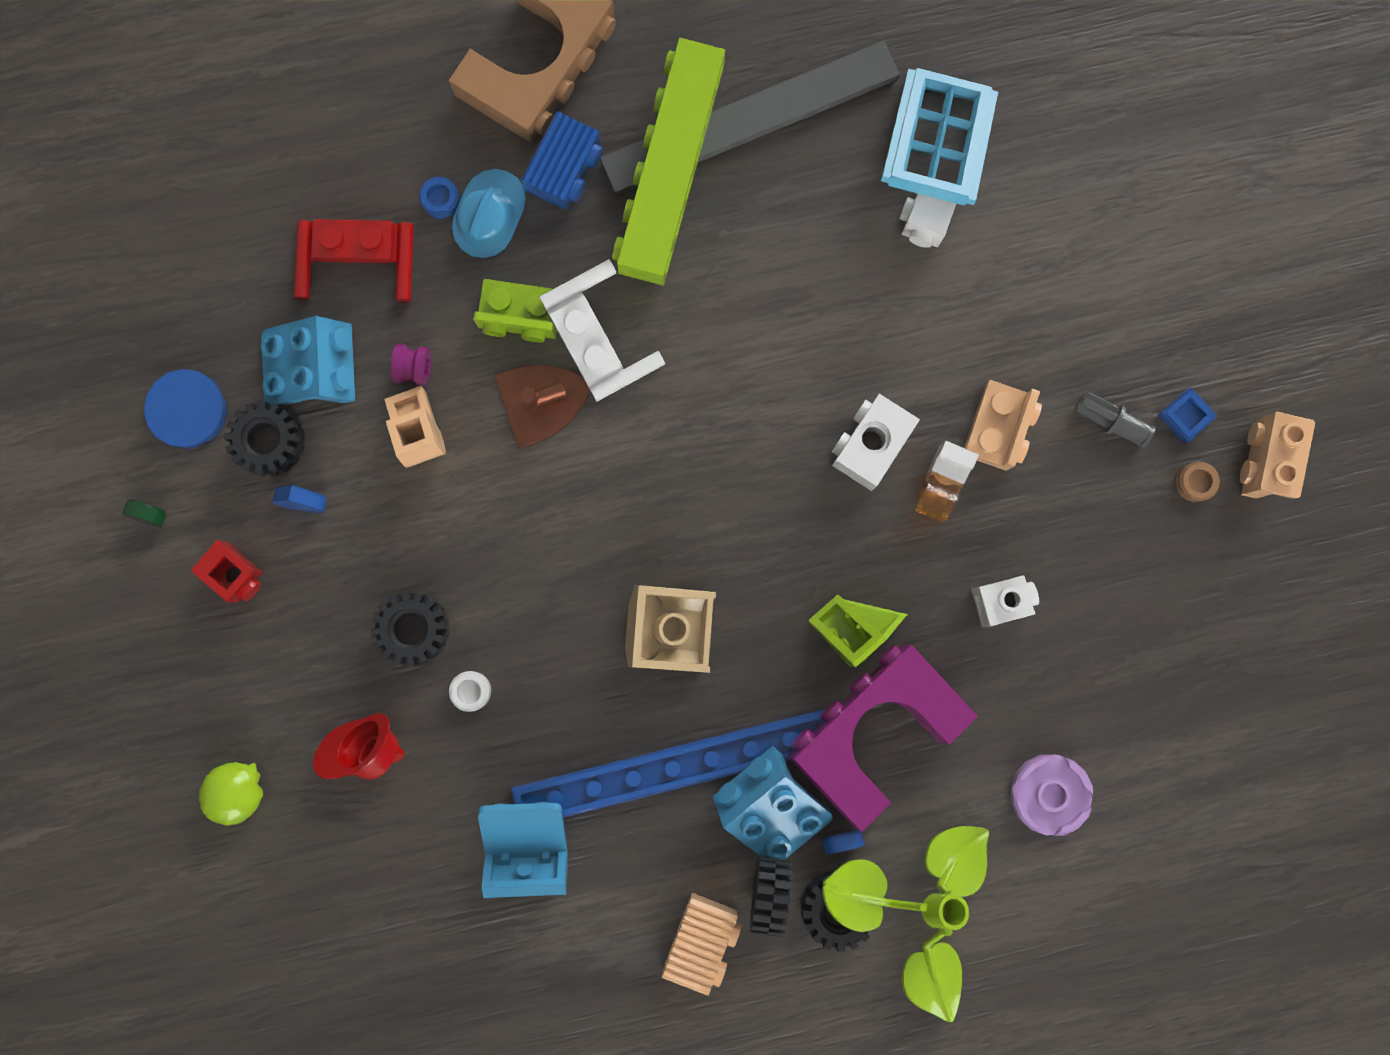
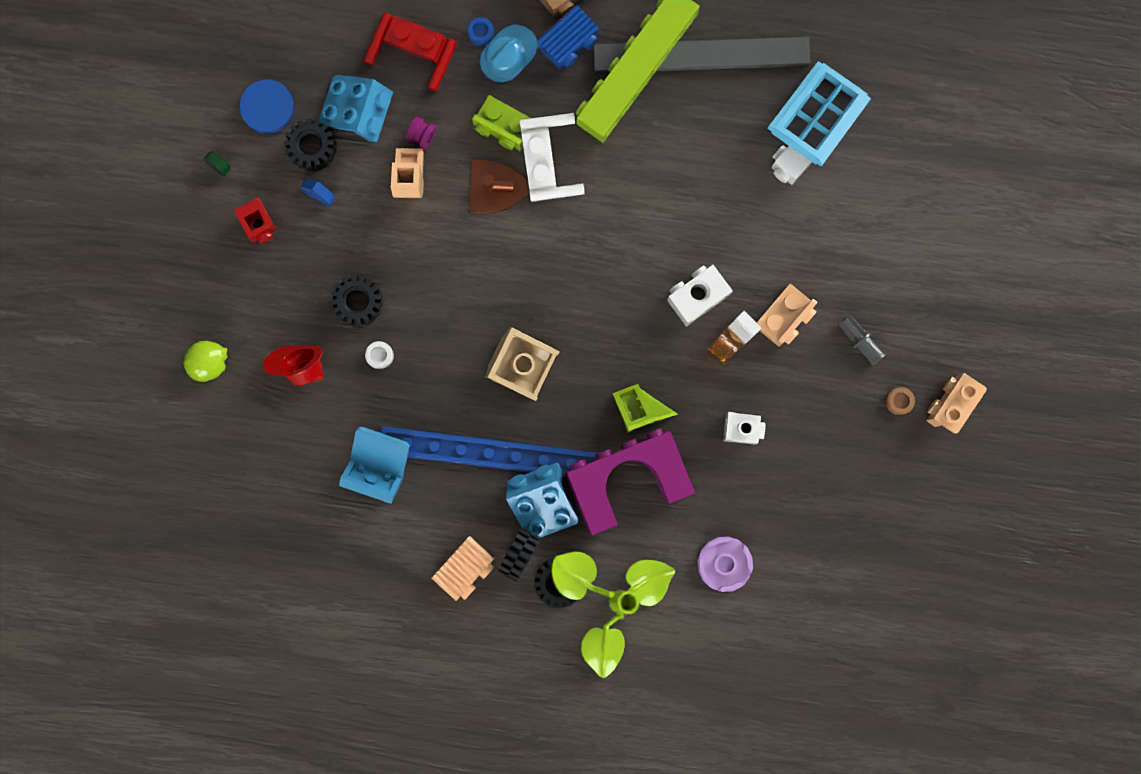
camera: 25 degrees right, 0 degrees up
(843, 841) = (579, 540): blue tile -> none
(1187, 415) = (910, 355): blue tile -> none

